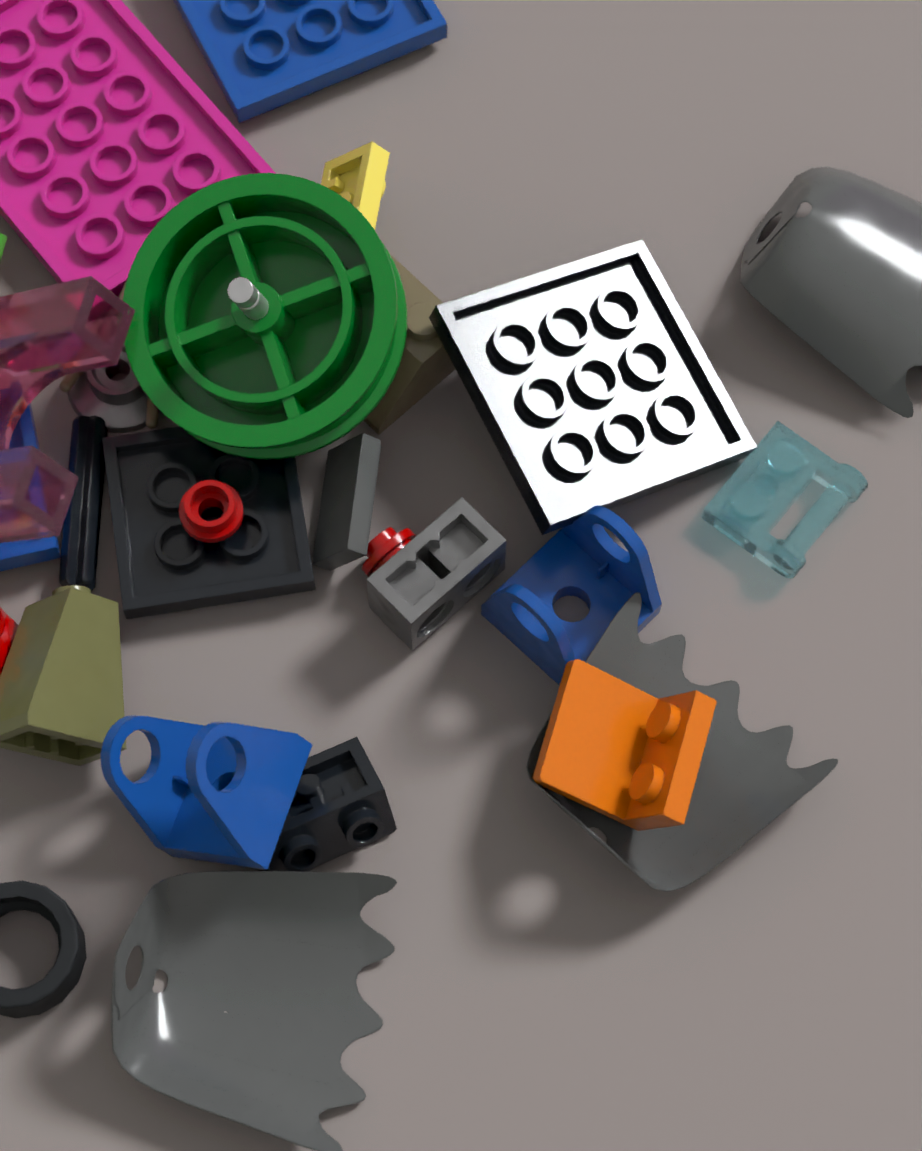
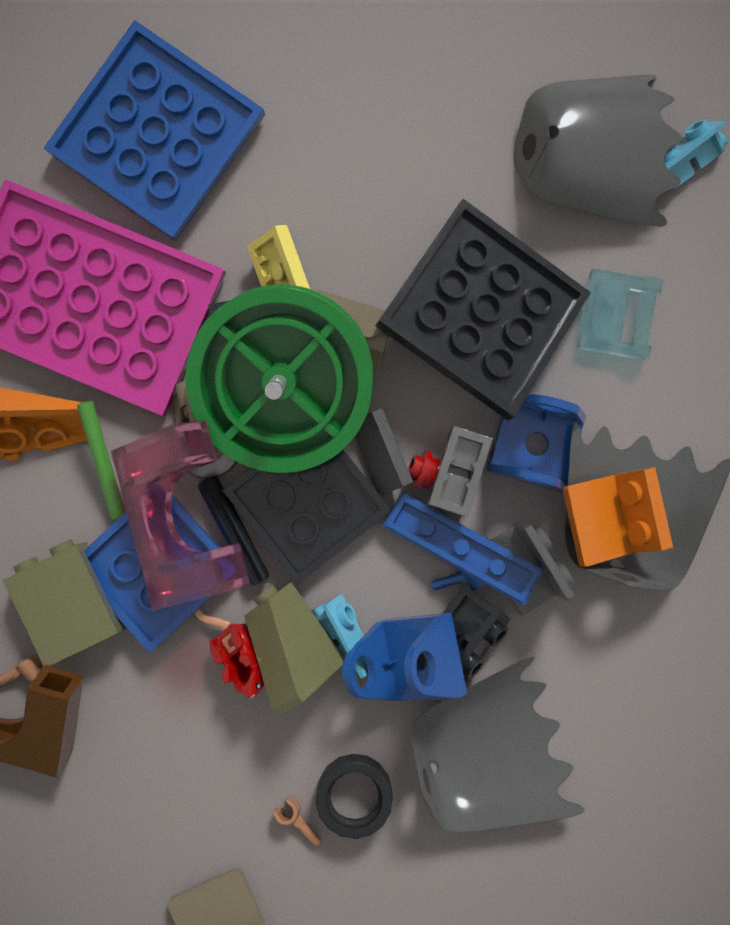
camera: 20 degrees left, 20 degrees up
(149, 690) = (340, 622): none -> medium azure hinge
(211, 494) = (303, 513): red plate -> none
(379, 732) = (455, 579): none -> blue hand
(385, 684) = (463, 548): none -> blue tile
(455, 759) = (534, 546): none -> dark grey bracket

